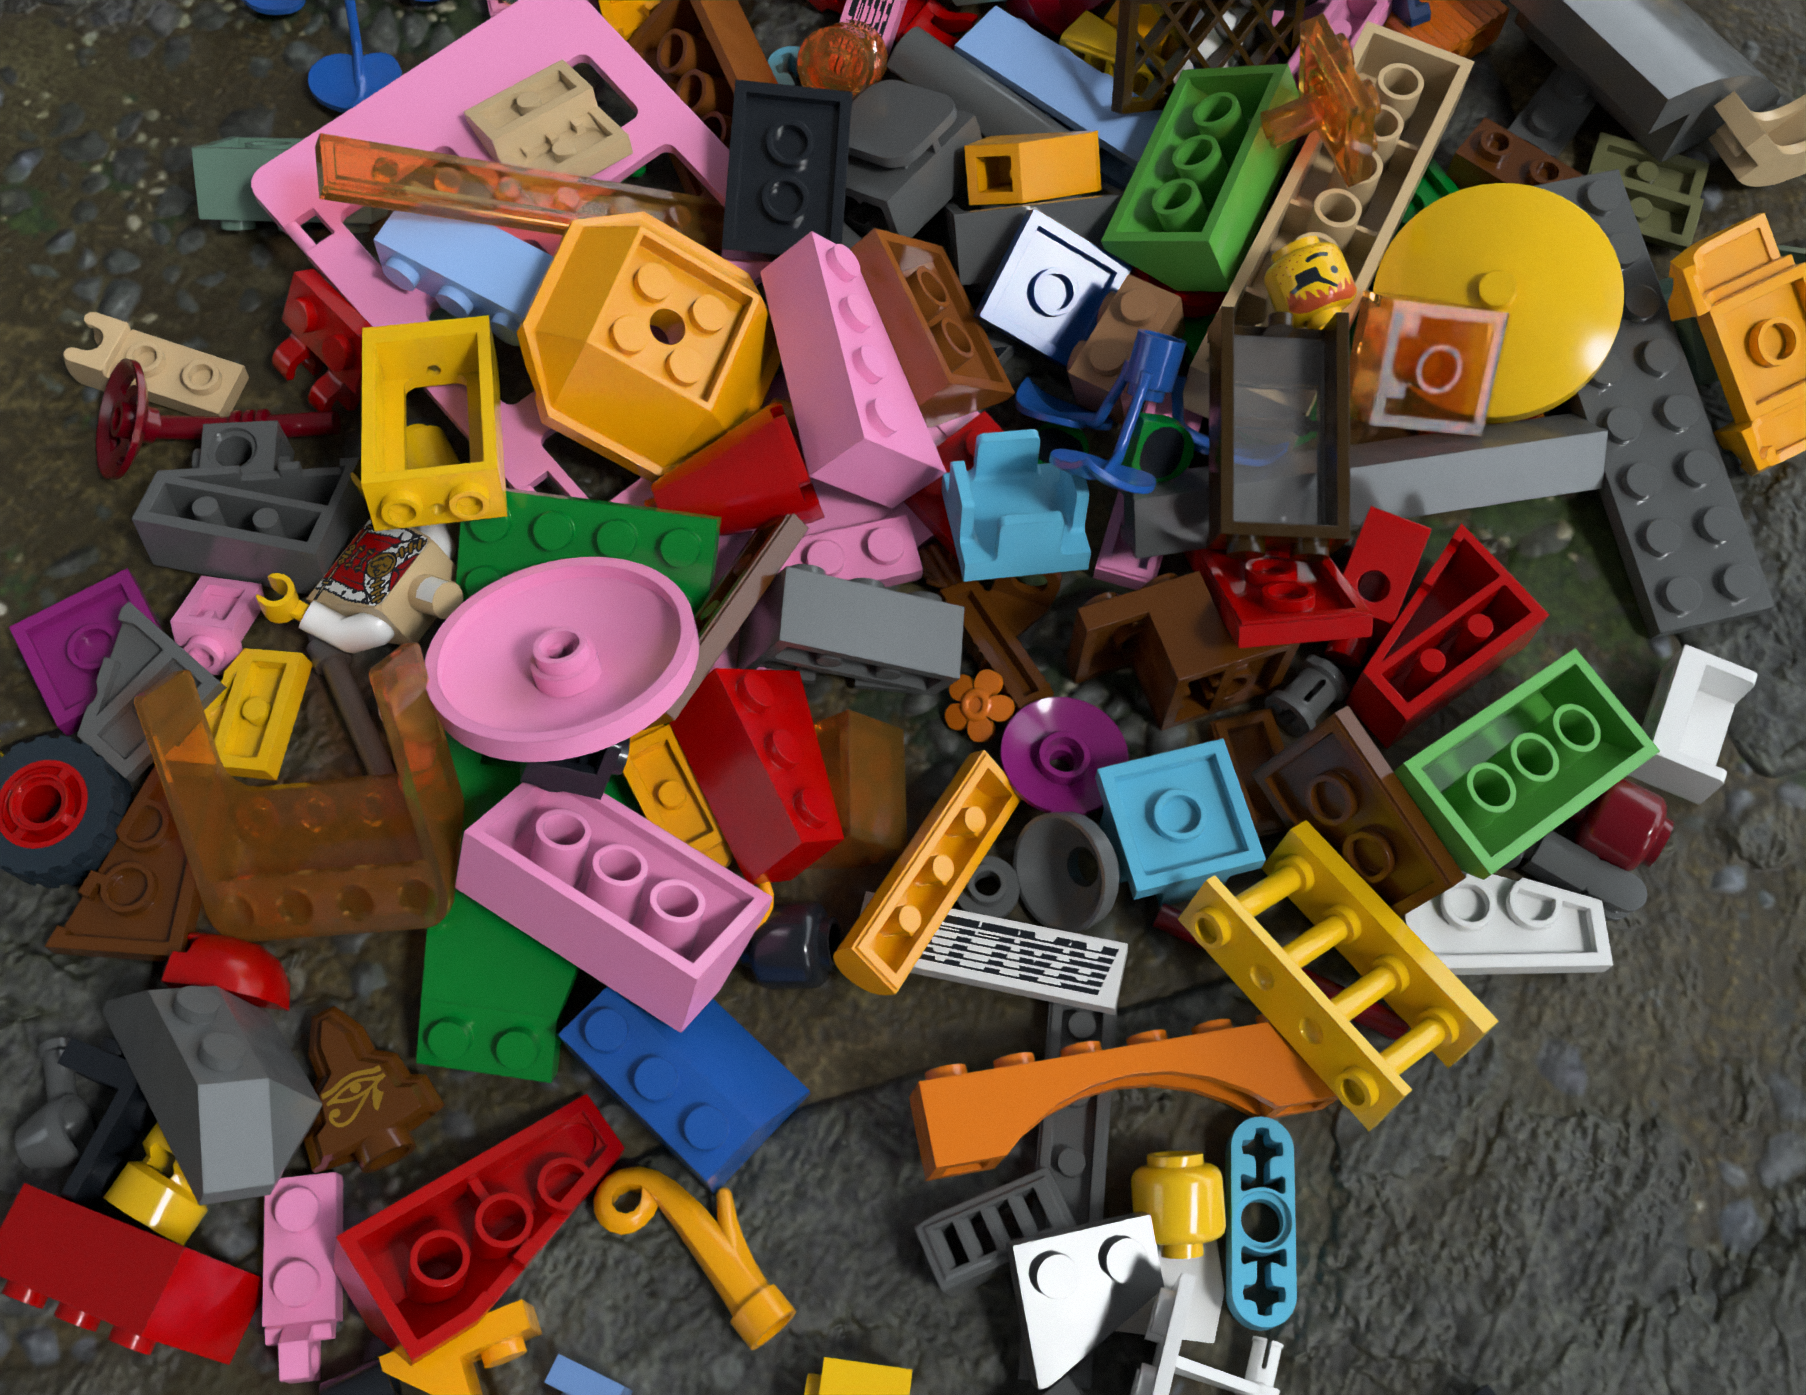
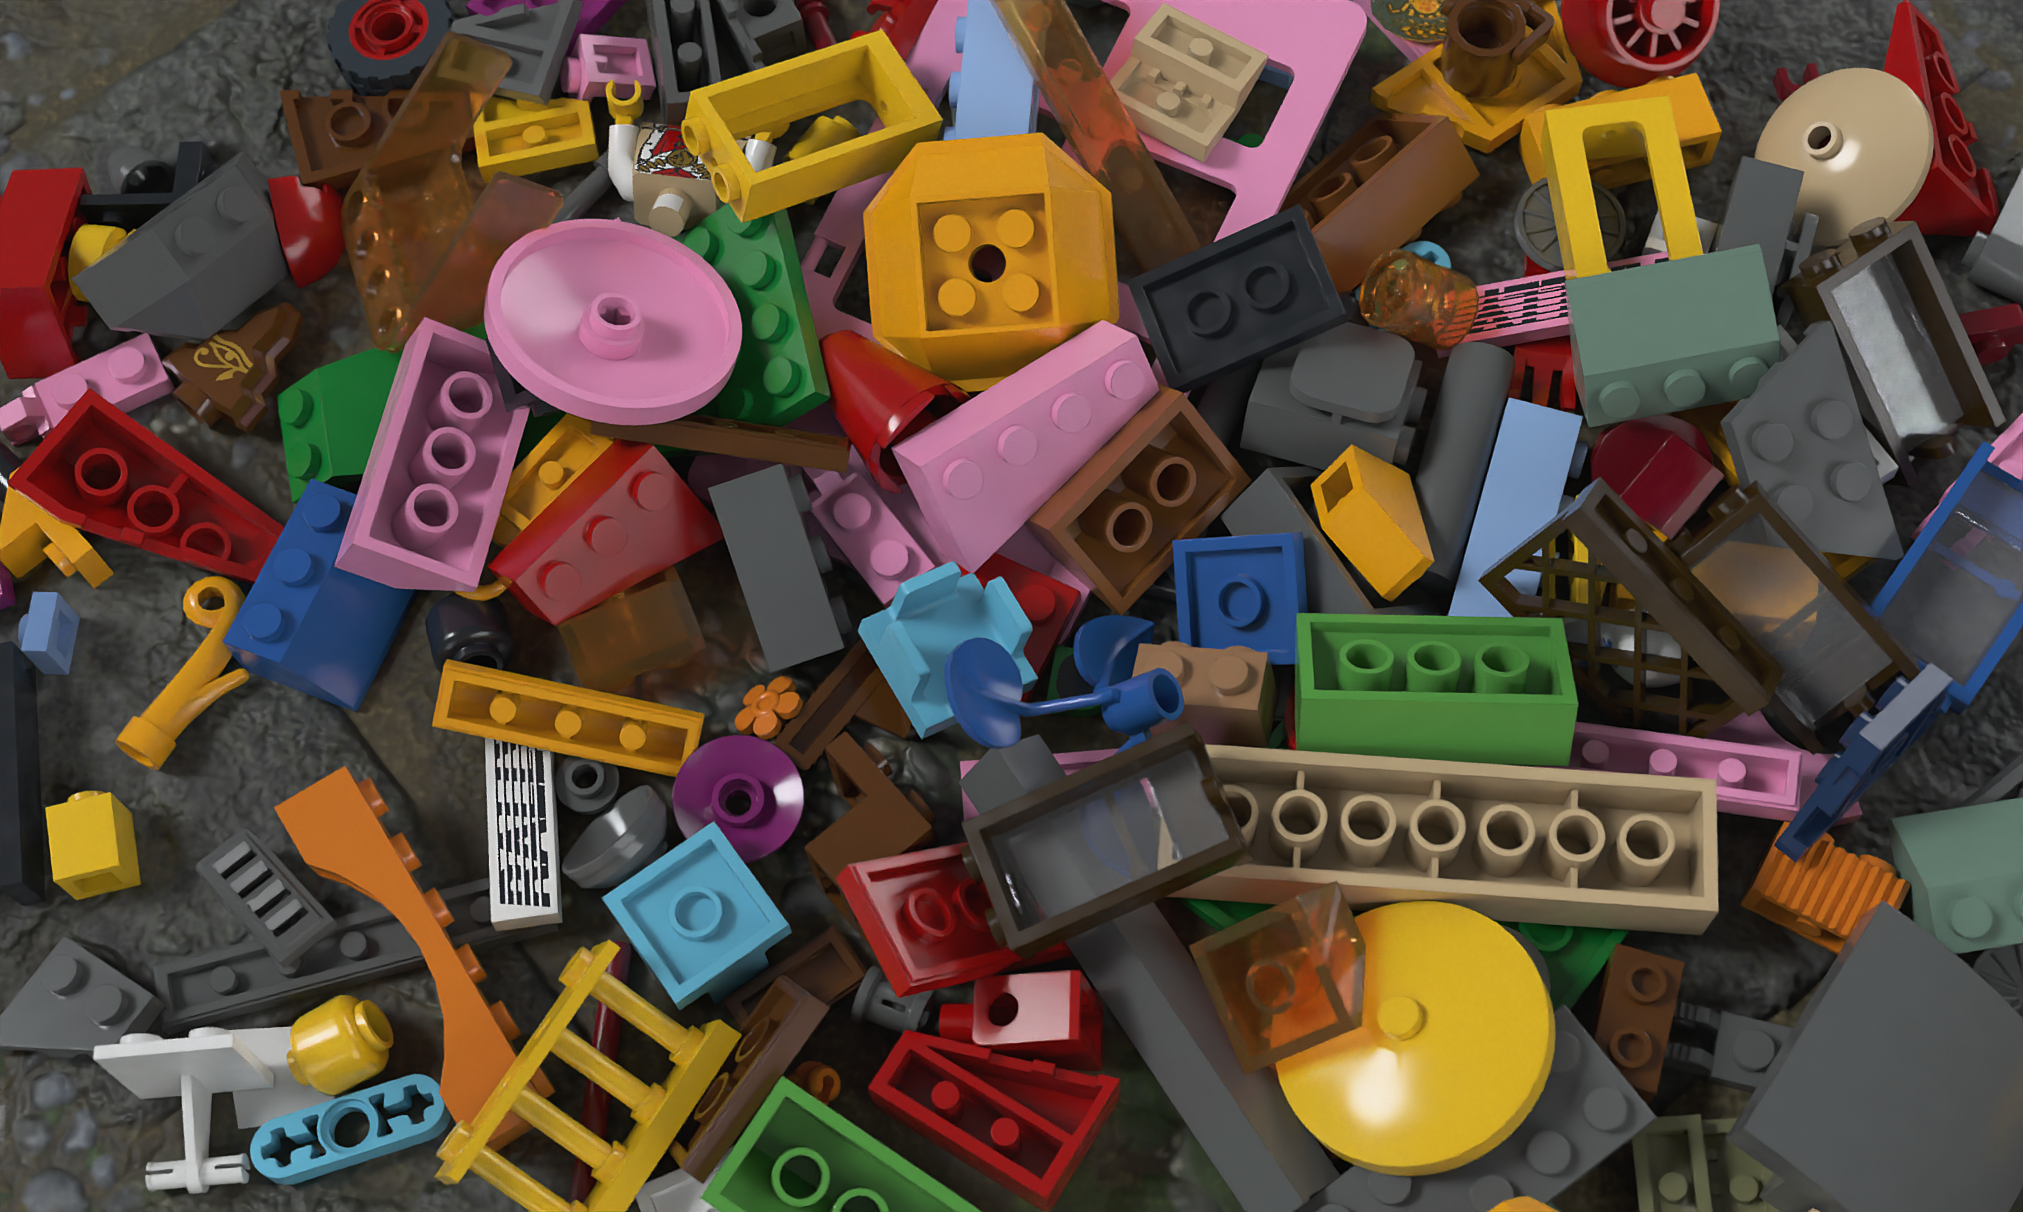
camera: 75 degrees right, 0 degrees up
(1080, 1288) = (232, 979): wing -> none
(1159, 447) = (1064, 745): tile -> none
(1310, 282) = (1295, 816): yellow head -> none
(1329, 101) = (1522, 755): clear orange plate -> none

